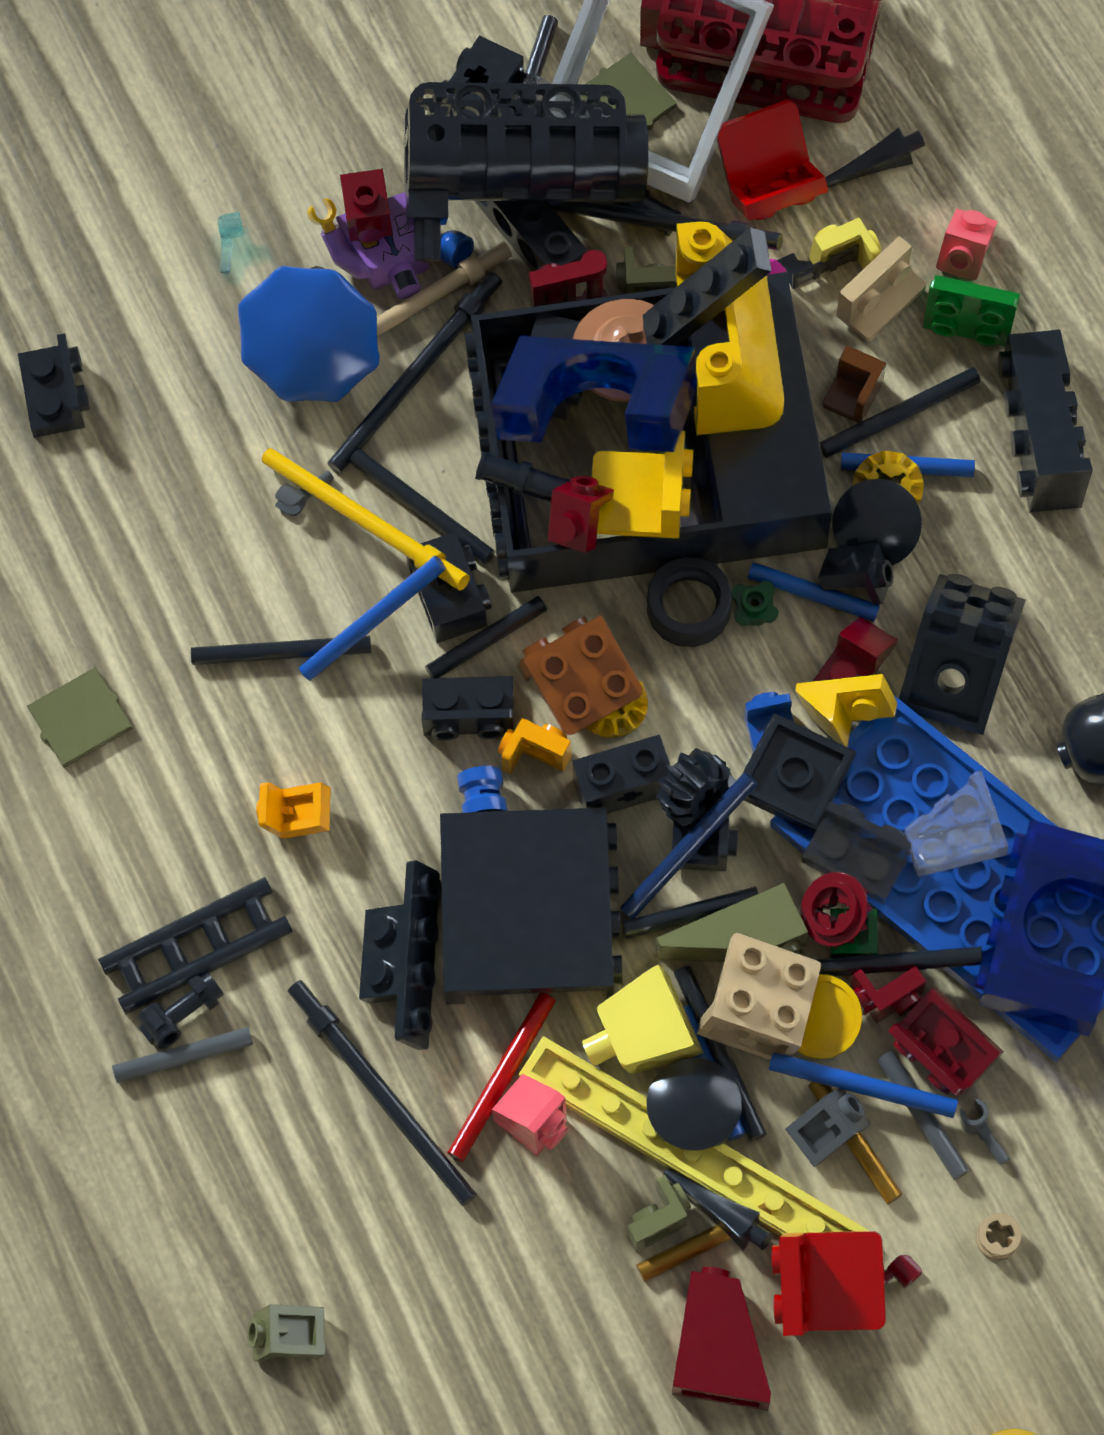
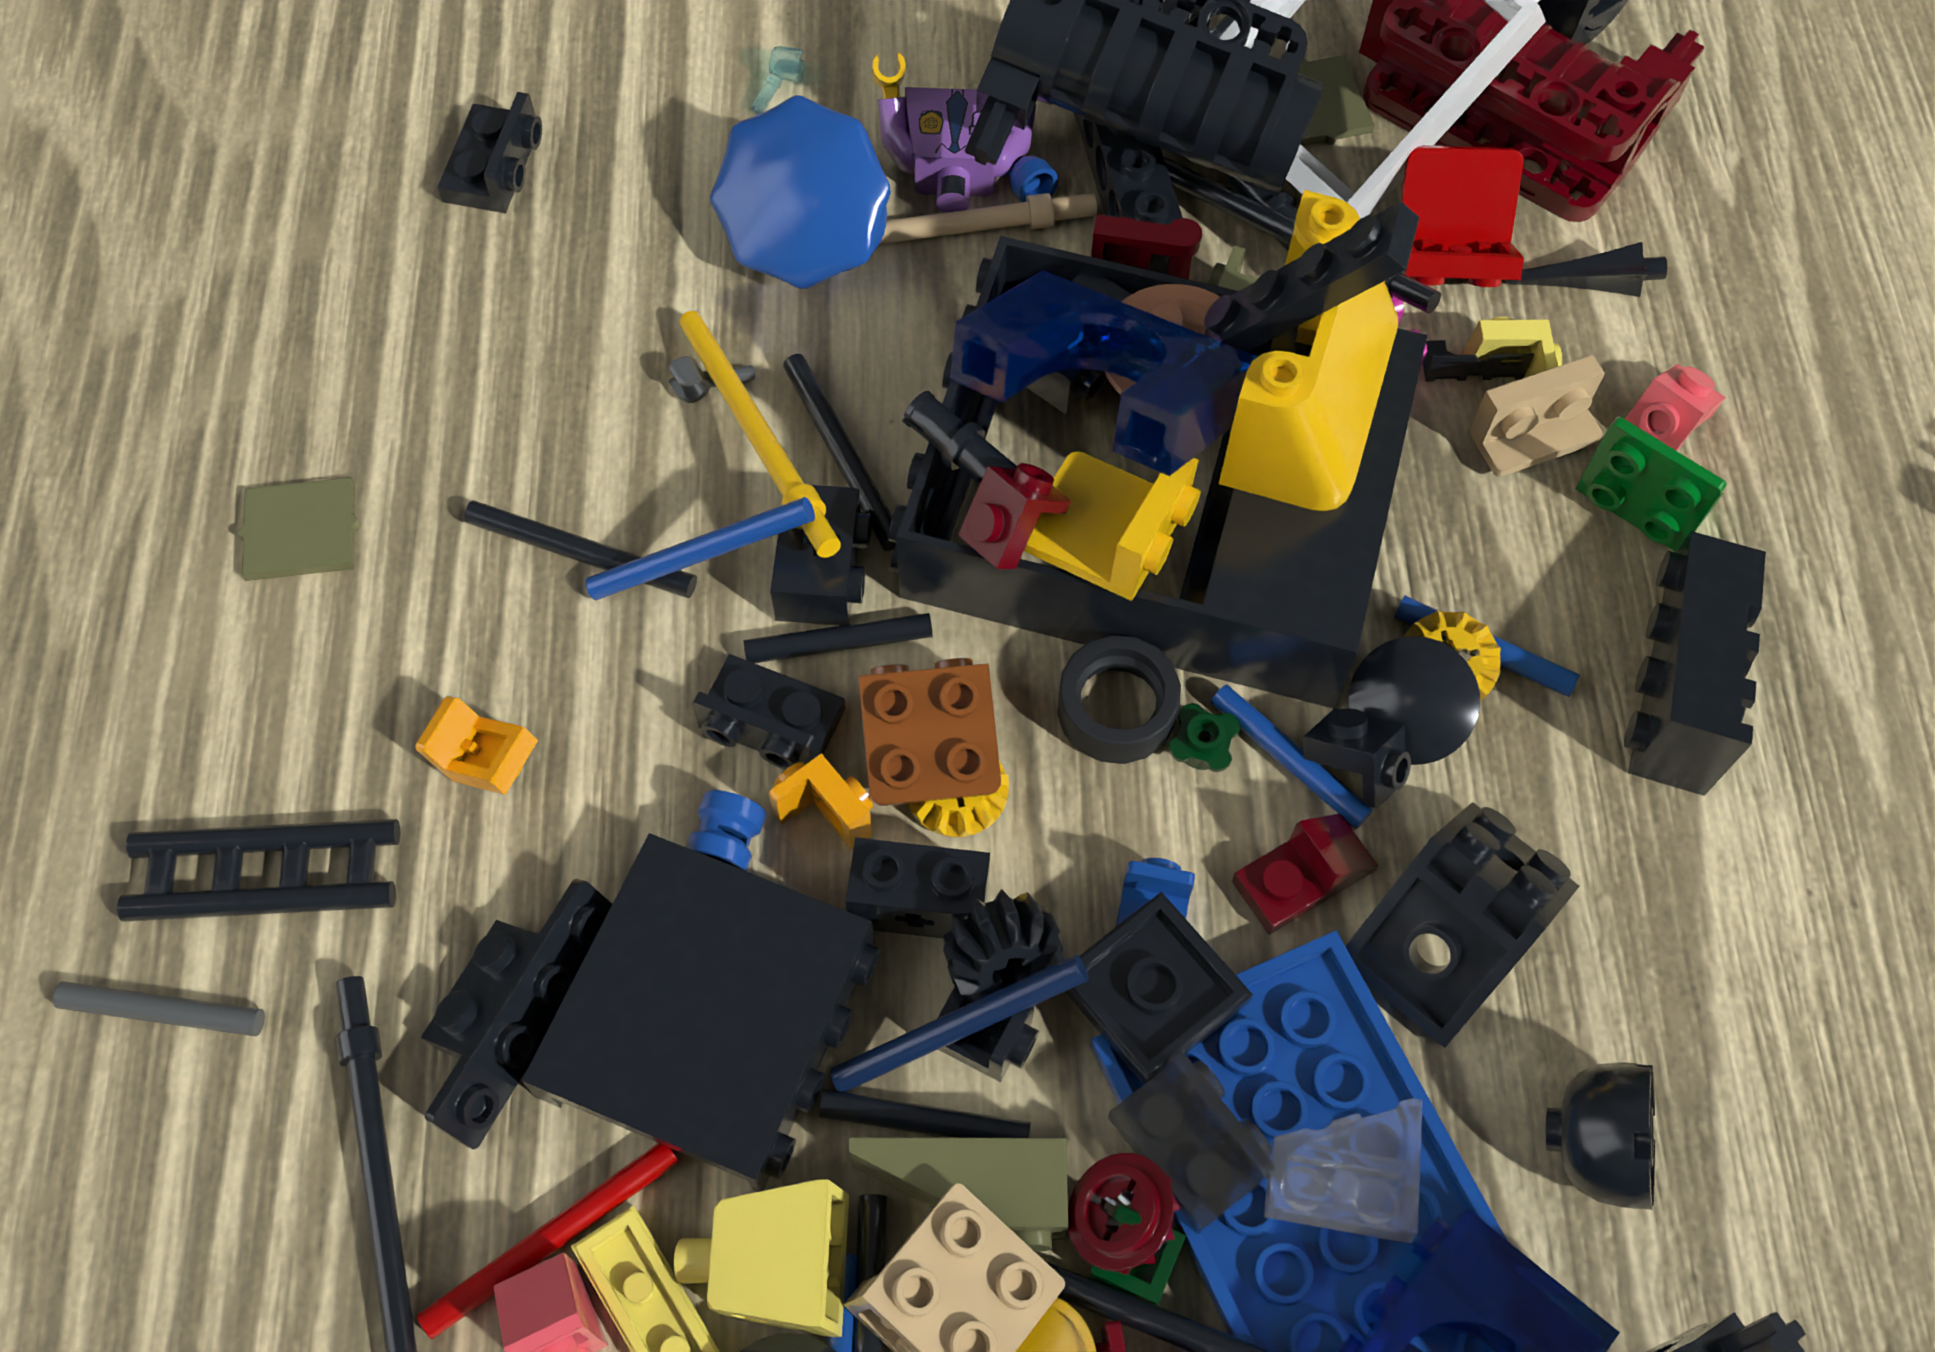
camera: 20 degrees right, 5 degrees down
(161, 1026) = (153, 949): black bar -> none
(366, 205) = (943, 91): dark red brick -> none
(468, 305) = (898, 303): black bar -> none
(840, 701) = (1266, 915): yellow slope -> none
(855, 385) = (1460, 520): reddish brown panel -> none
(899, 412) = (1503, 577): black bar -> none

